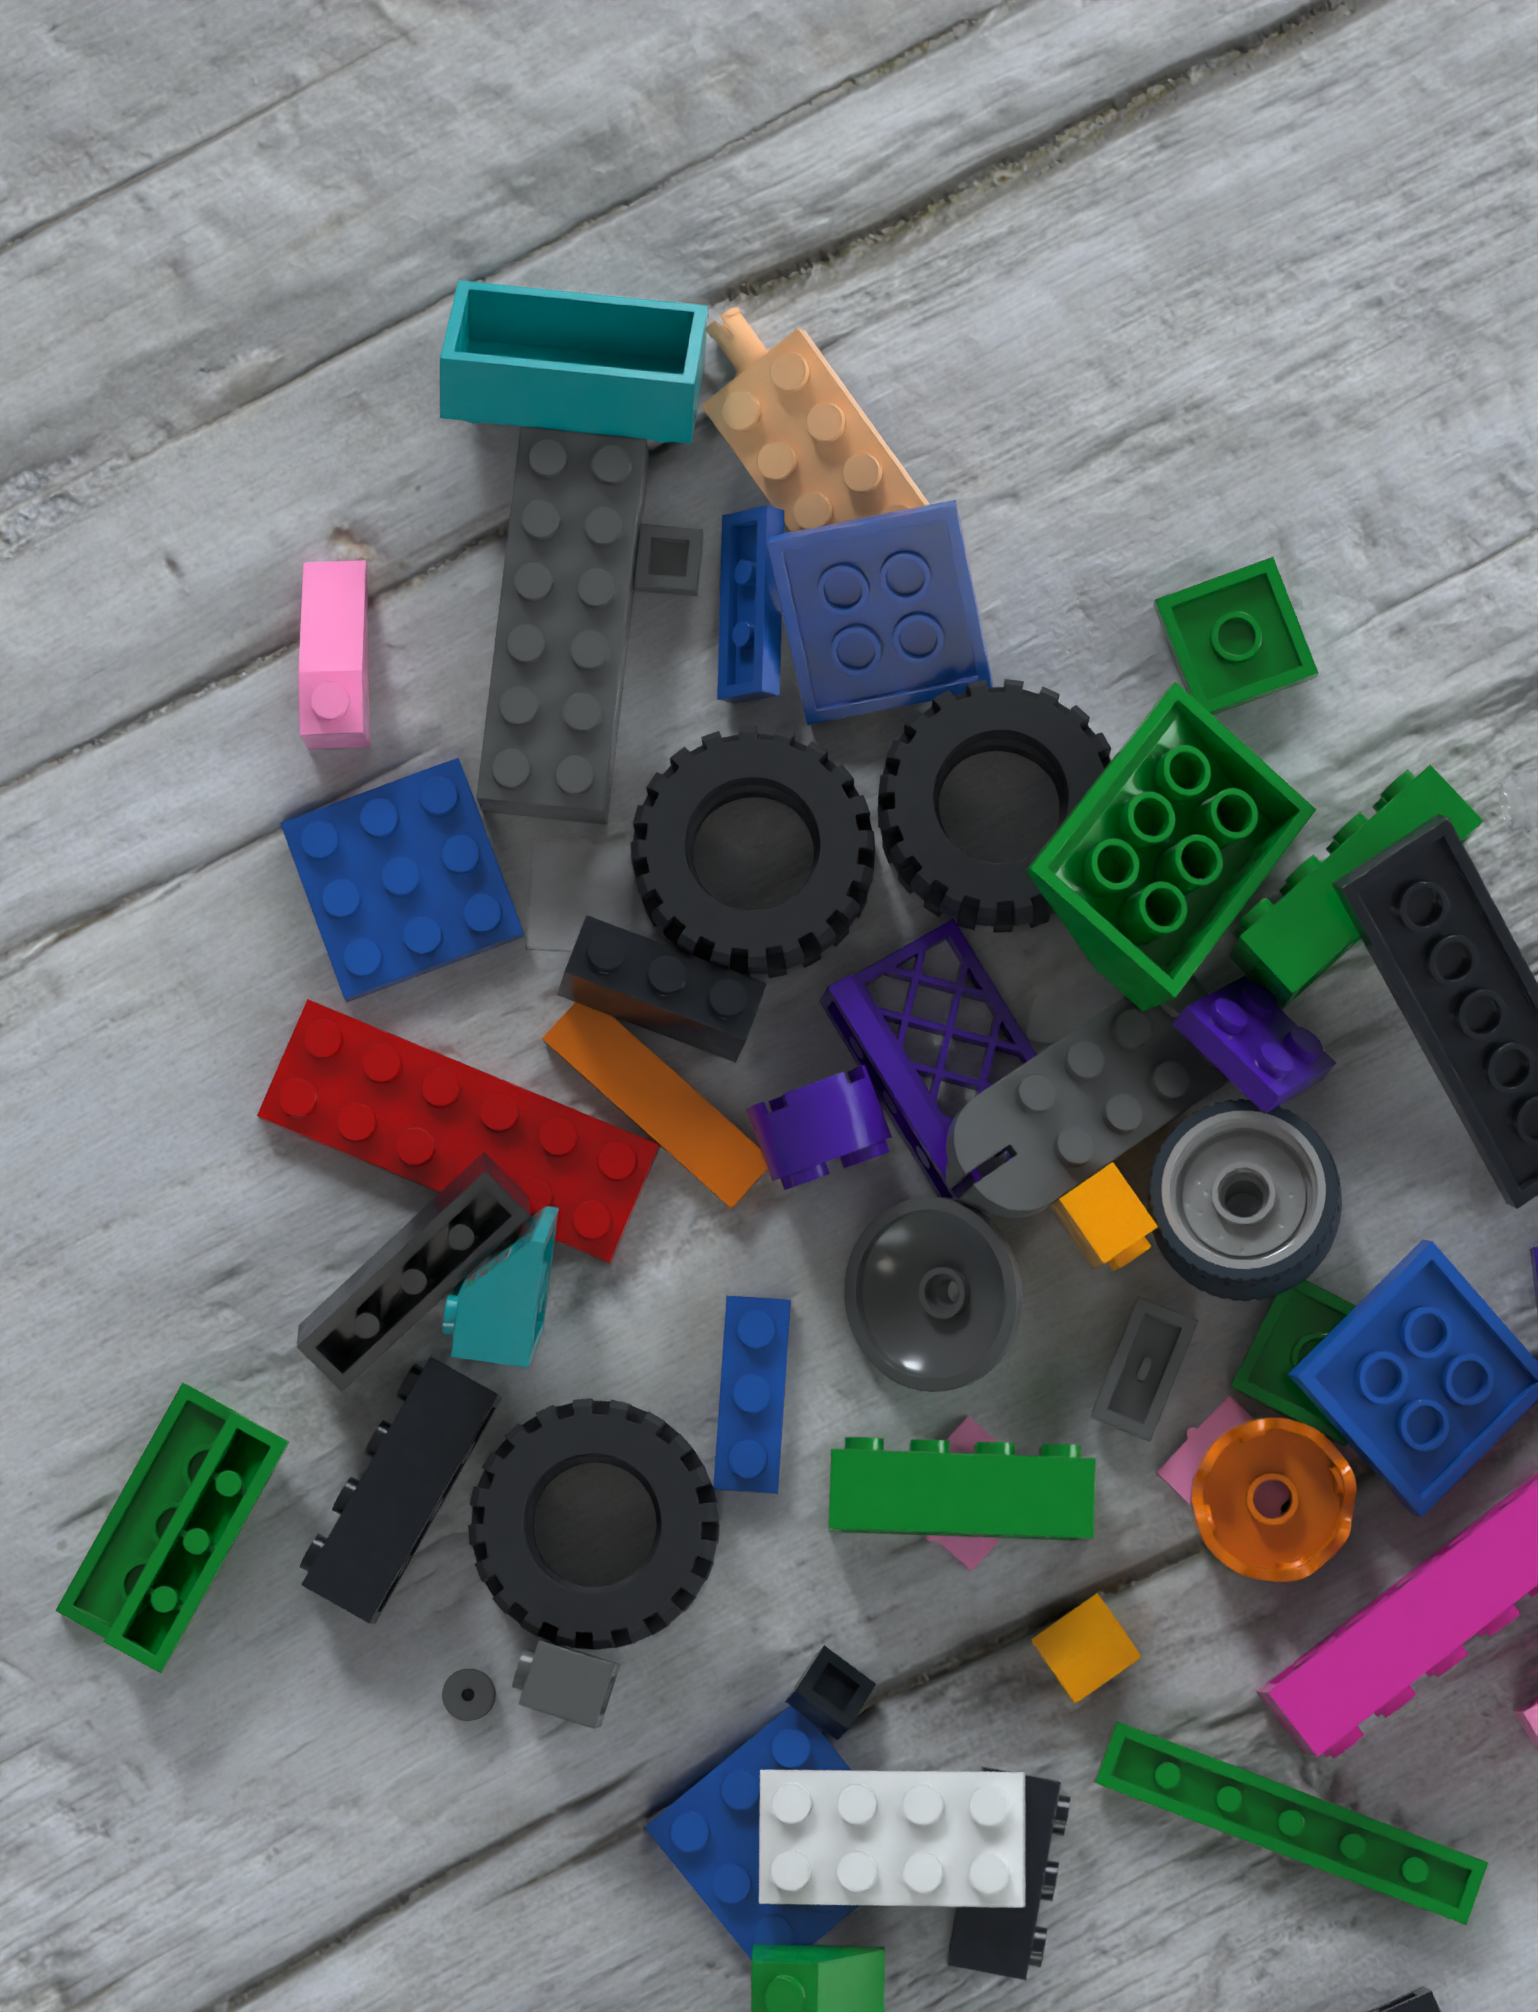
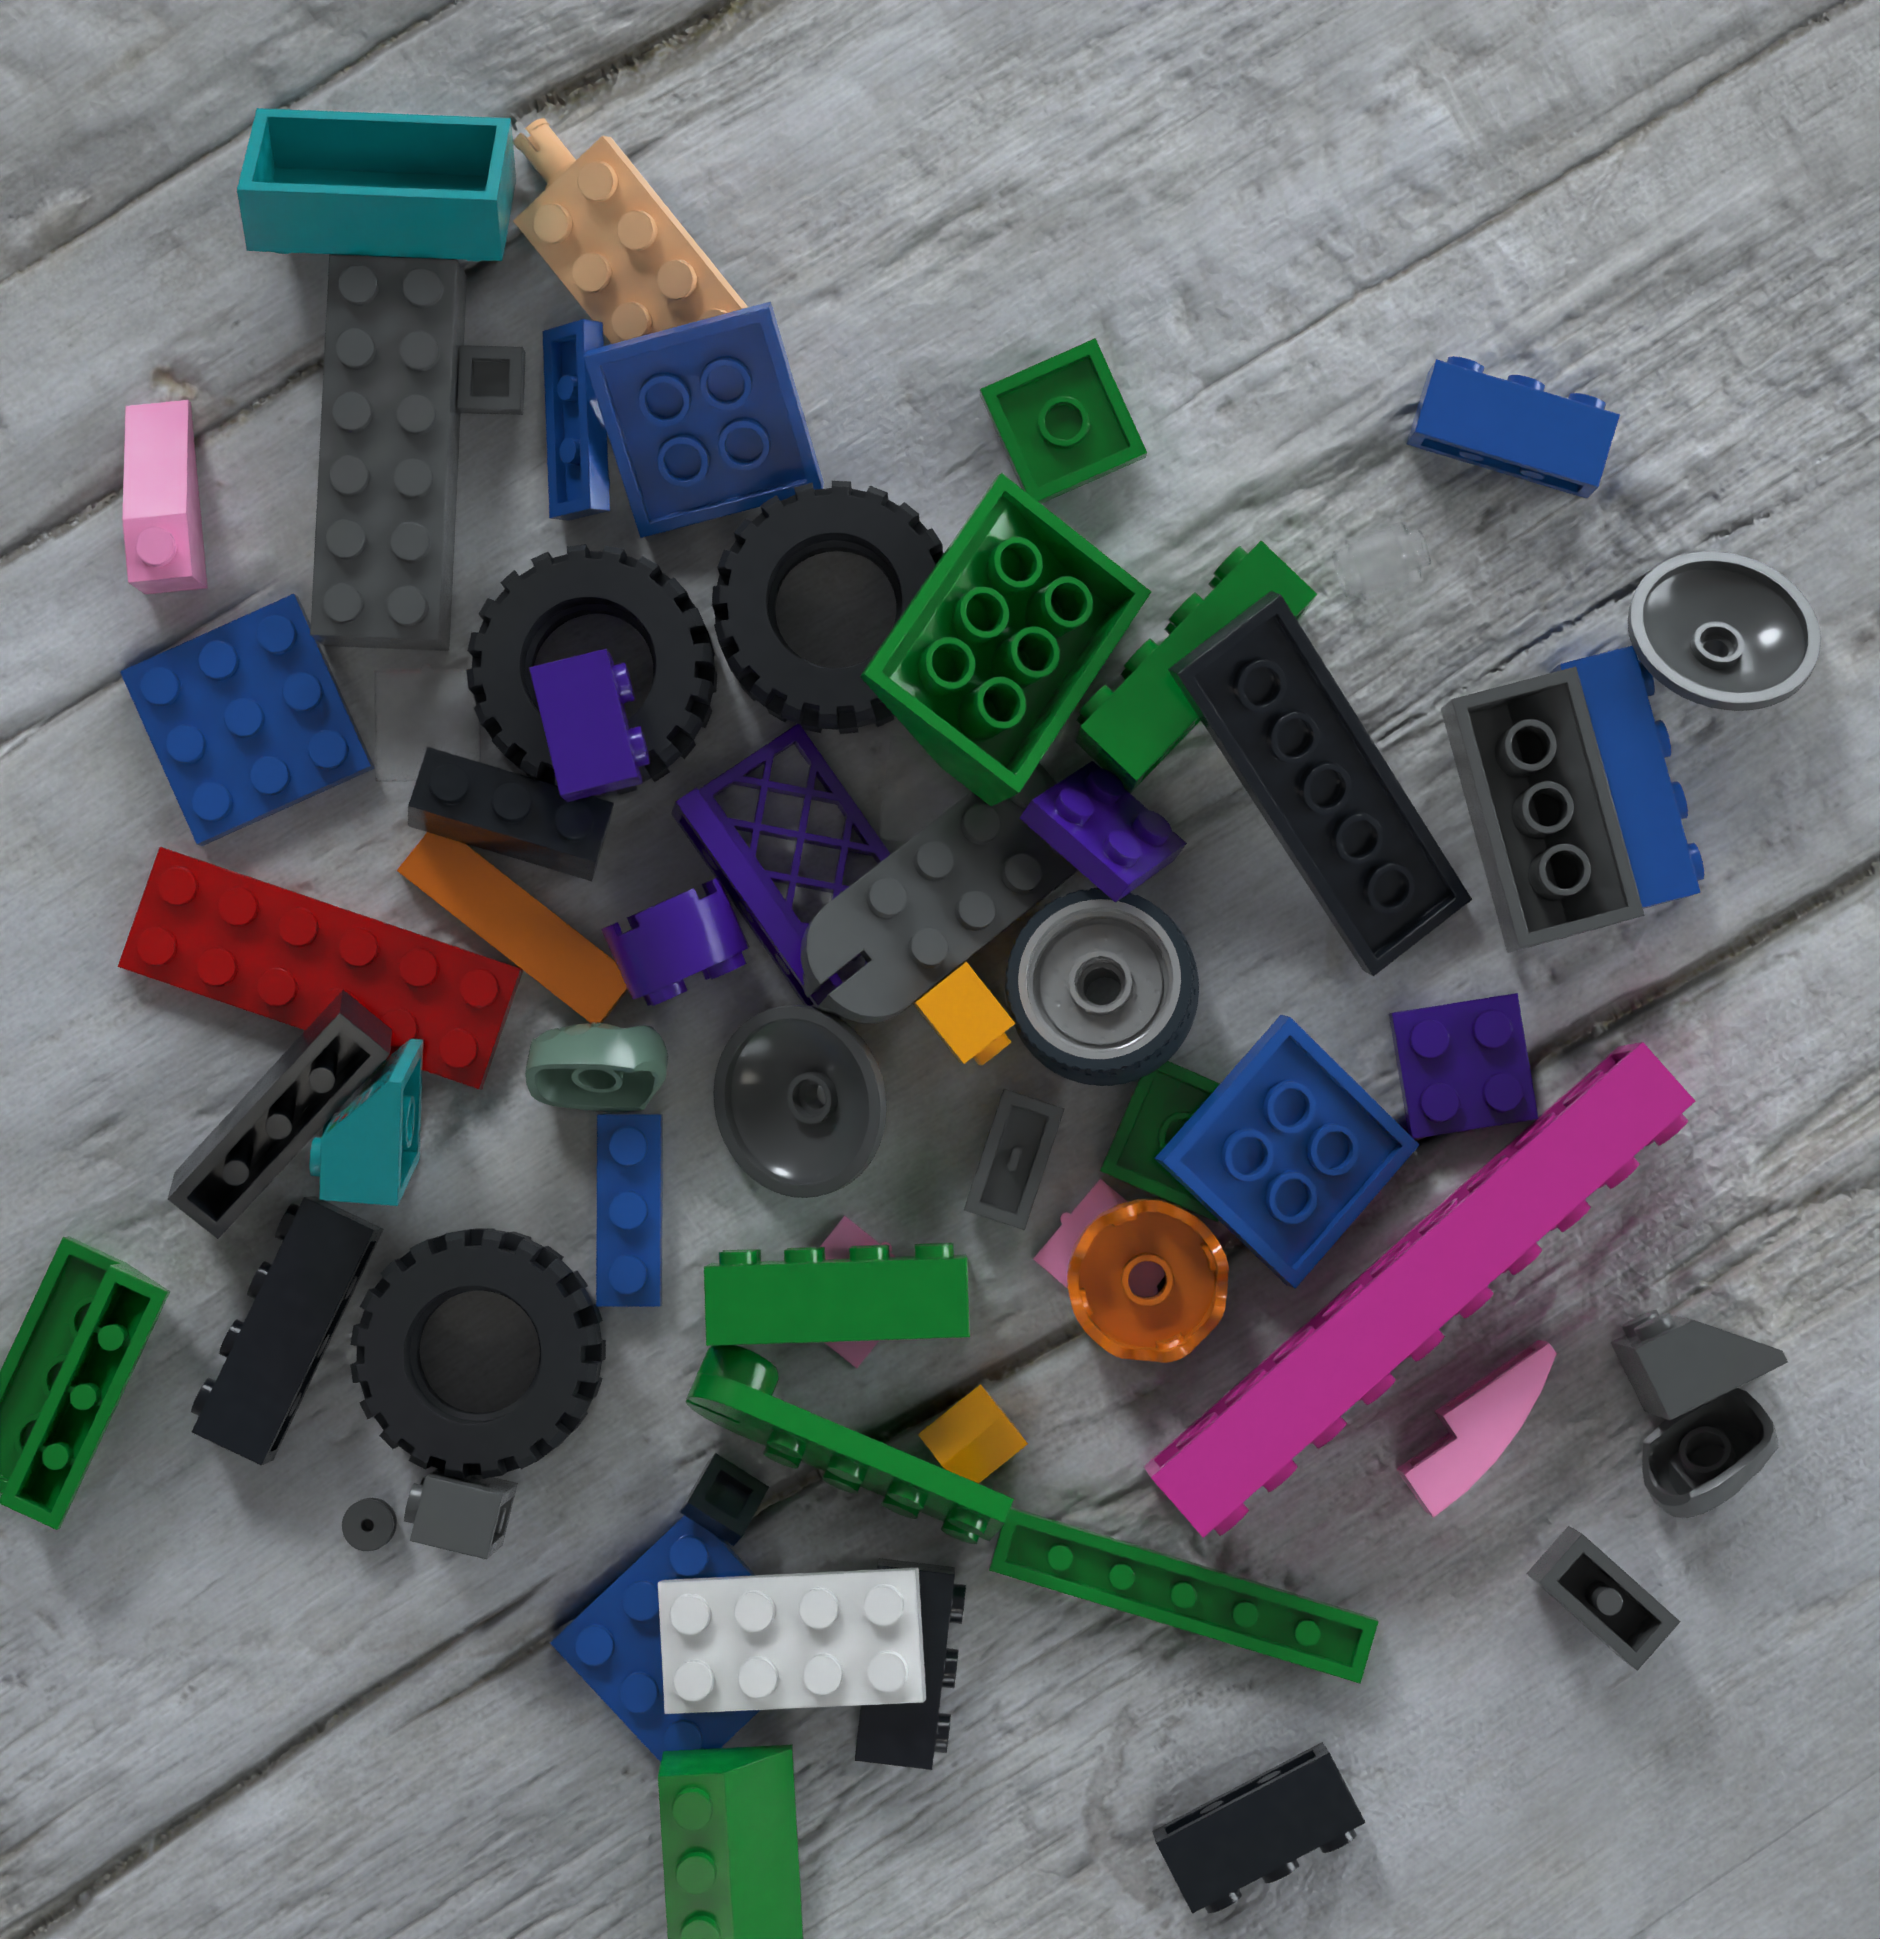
camera: 10 degrees left, 5 degrees up
(731, 1247) = (597, 1067): none -> sand green piece
(751, 902) = (588, 725): none -> dark purple brick
(854, 1591) = (737, 1392): none -> green plate

